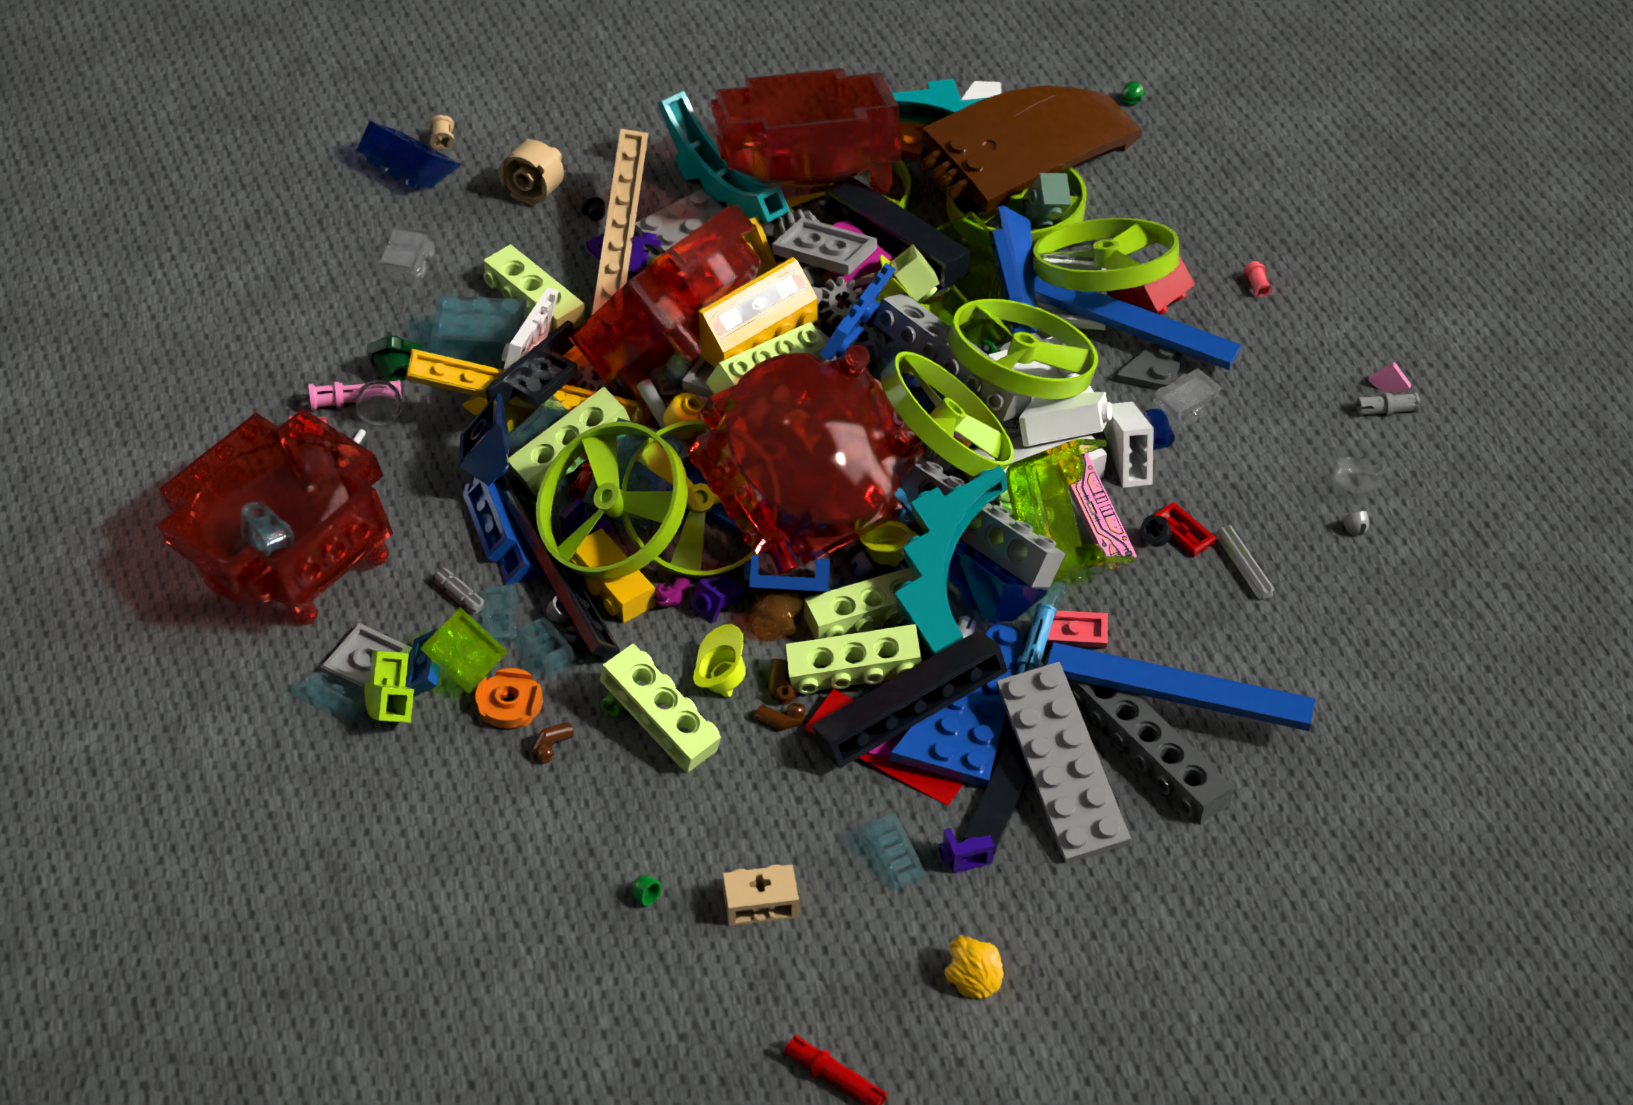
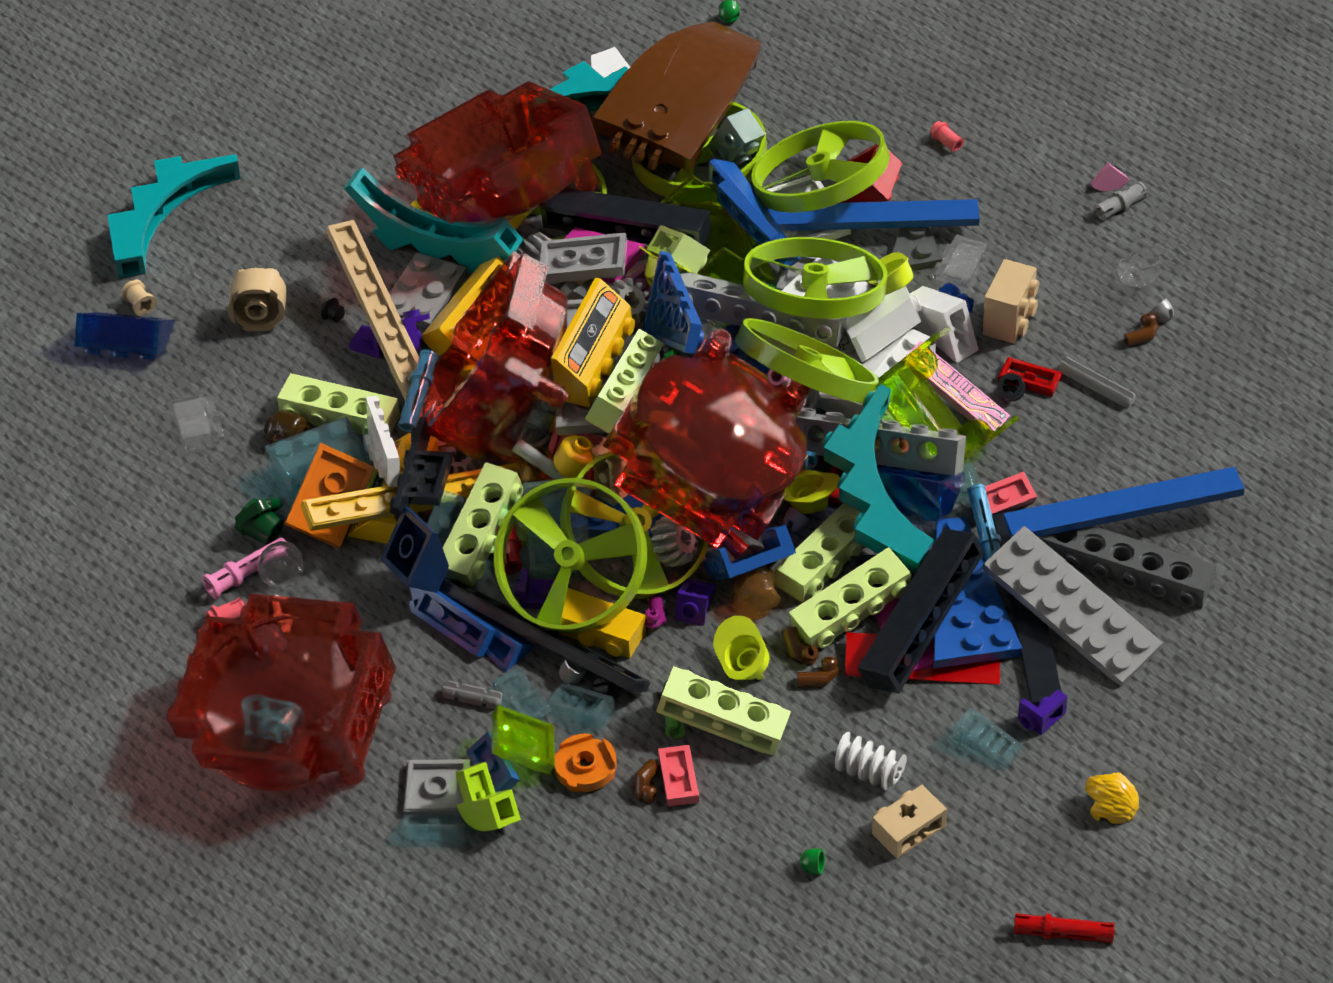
camera: 25 degrees left, 0 degrees up
(468, 341) = (328, 474): none -> orange plate
(476, 285) = (284, 425): none -> dark brown head
(543, 51) = (153, 202): none -> teal arch
(582, 749) = (678, 775): none -> coral plate
(608, 291) = (425, 364): none -> dark azure pin
(721, 534) = (672, 543): none -> light grey gear
(763, 819) = (868, 763): none -> white piece
(1114, 380) = (898, 272): none -> neon yellow piece
(1205, 449) = (1010, 301): none -> tan brick
(1326, 536) = (1145, 332): none -> reddish brown arm

